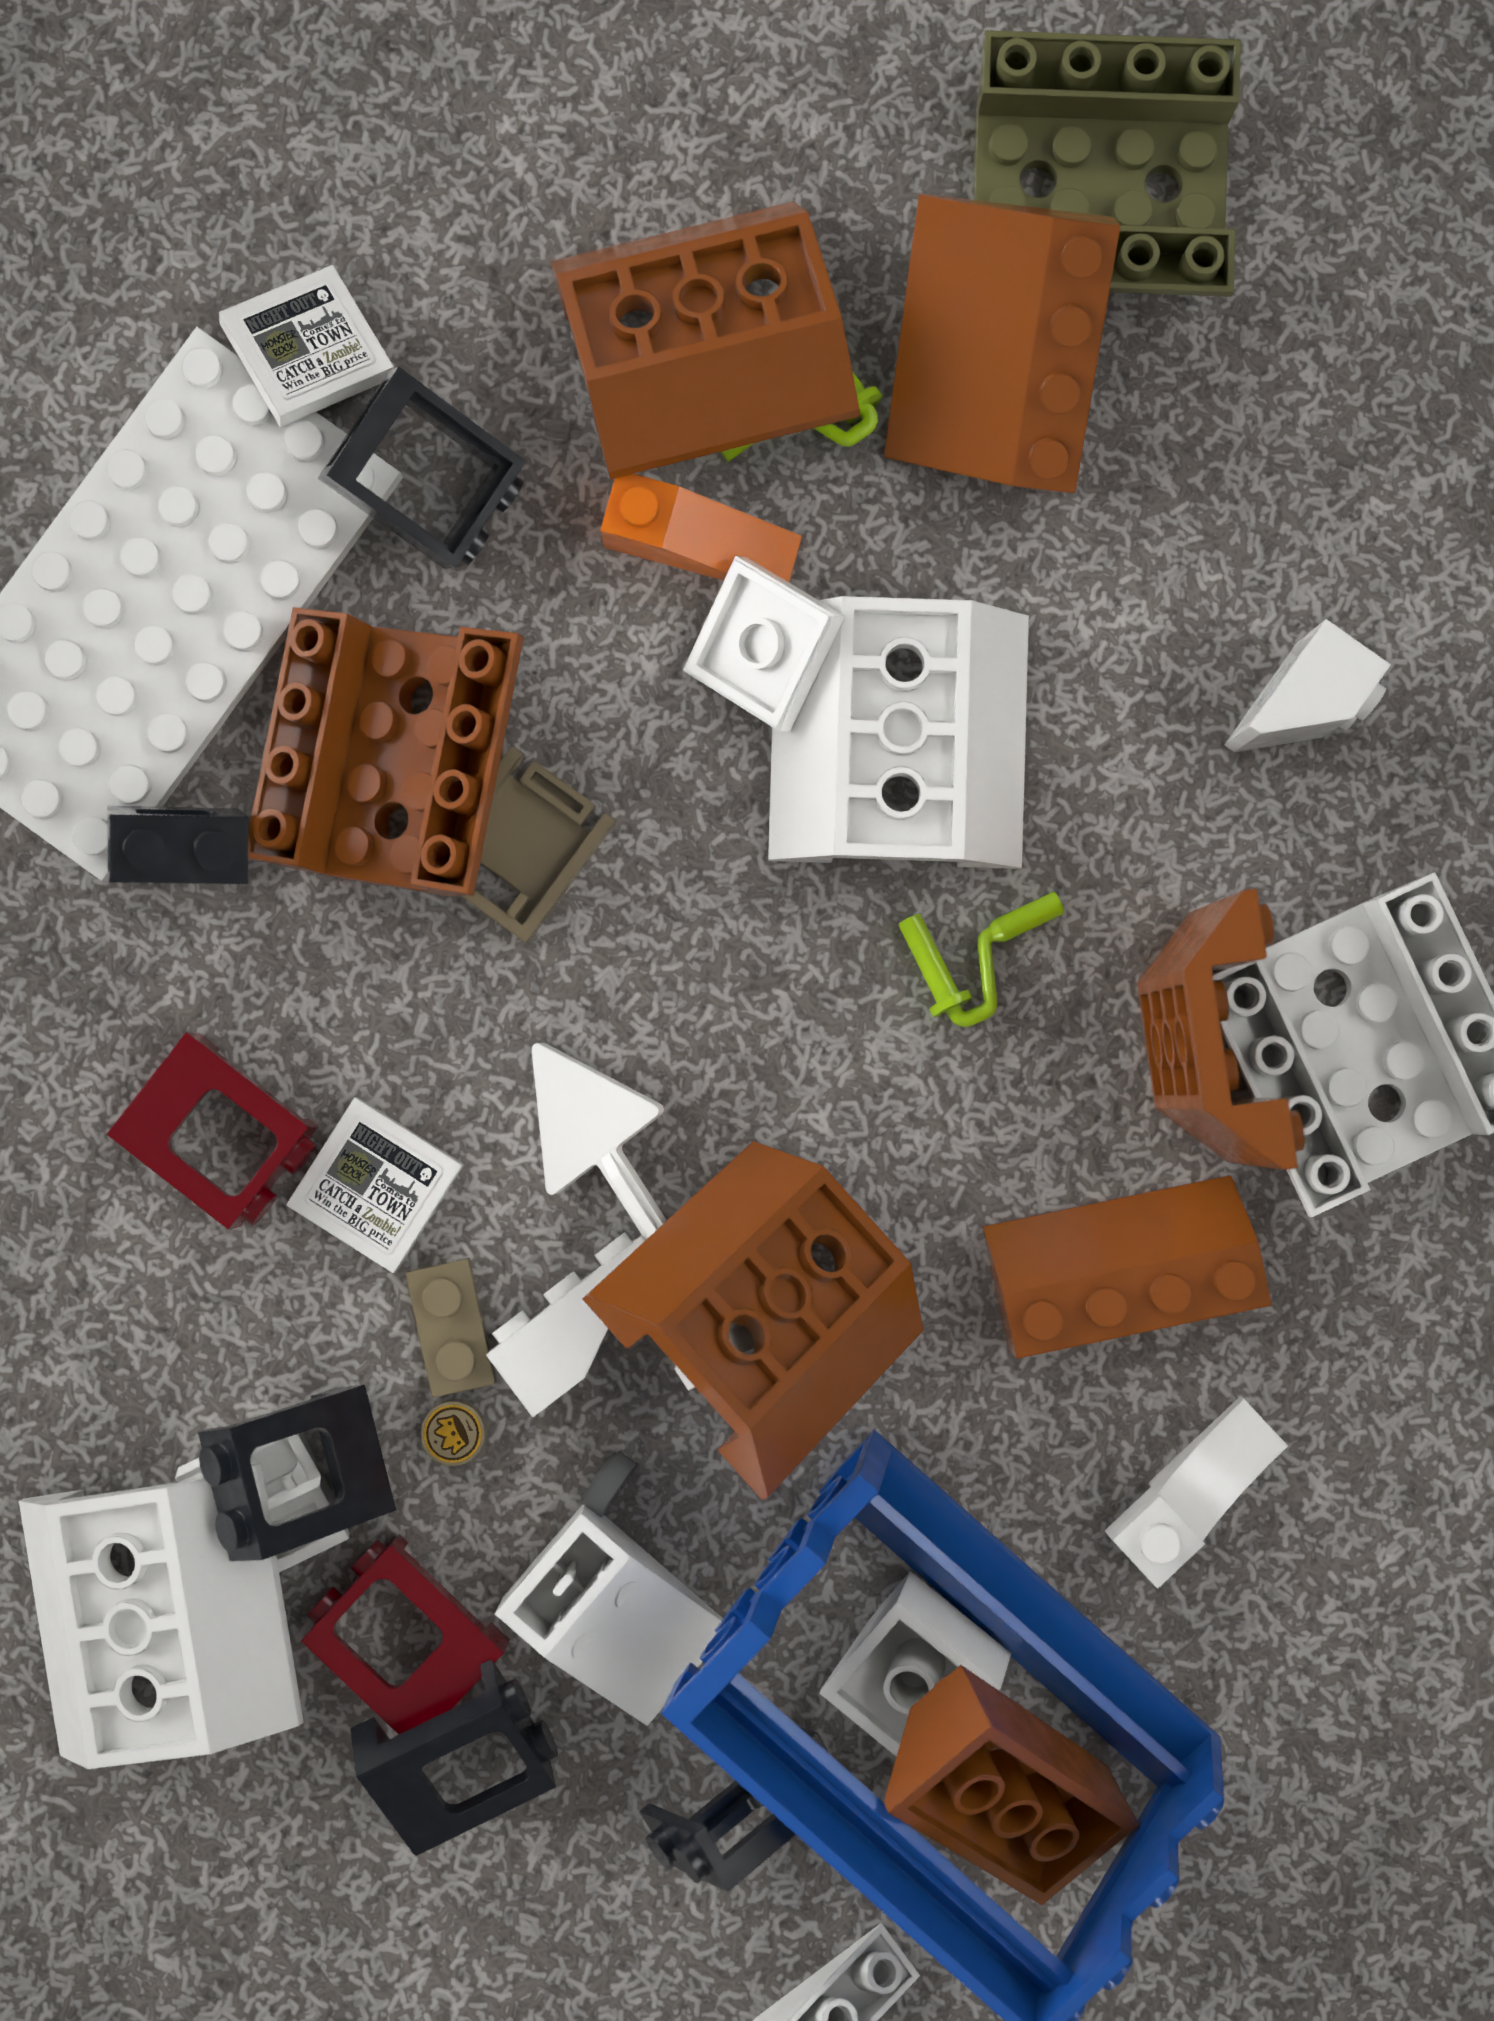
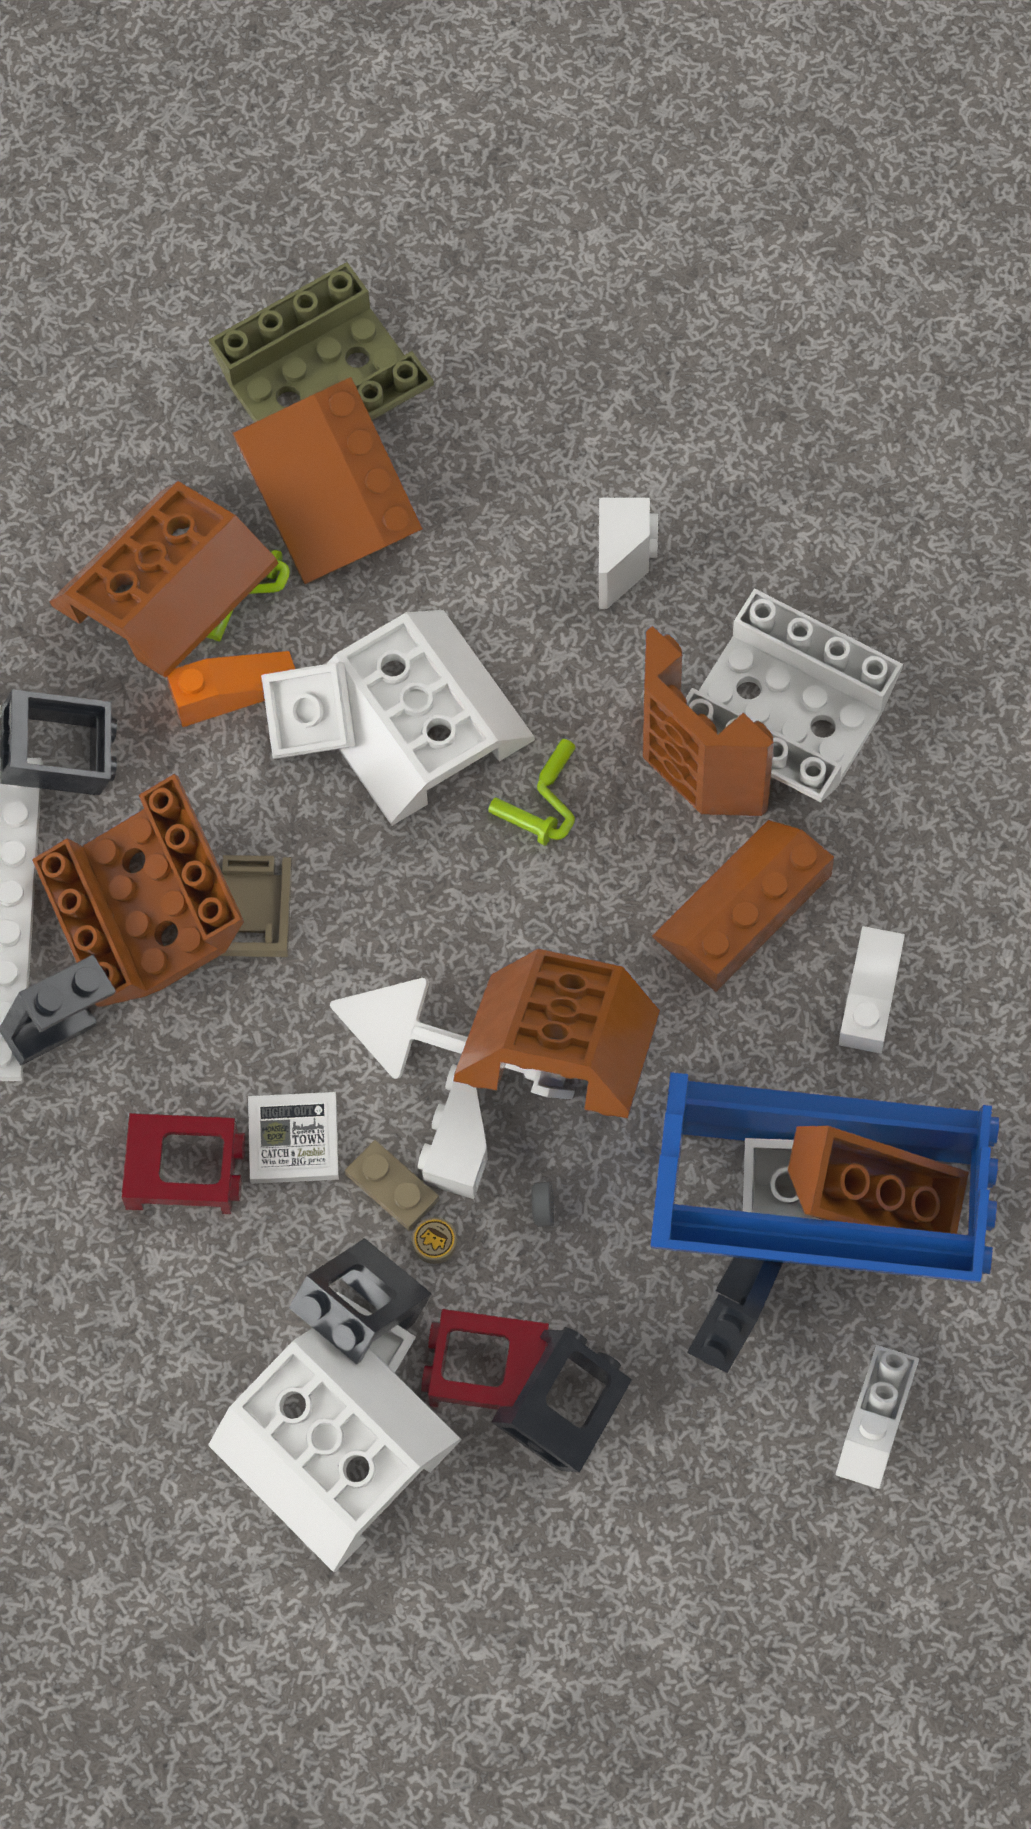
camera: 30 degrees left, 20 degrees down
(609, 1615) = (595, 1270): white slope -> none

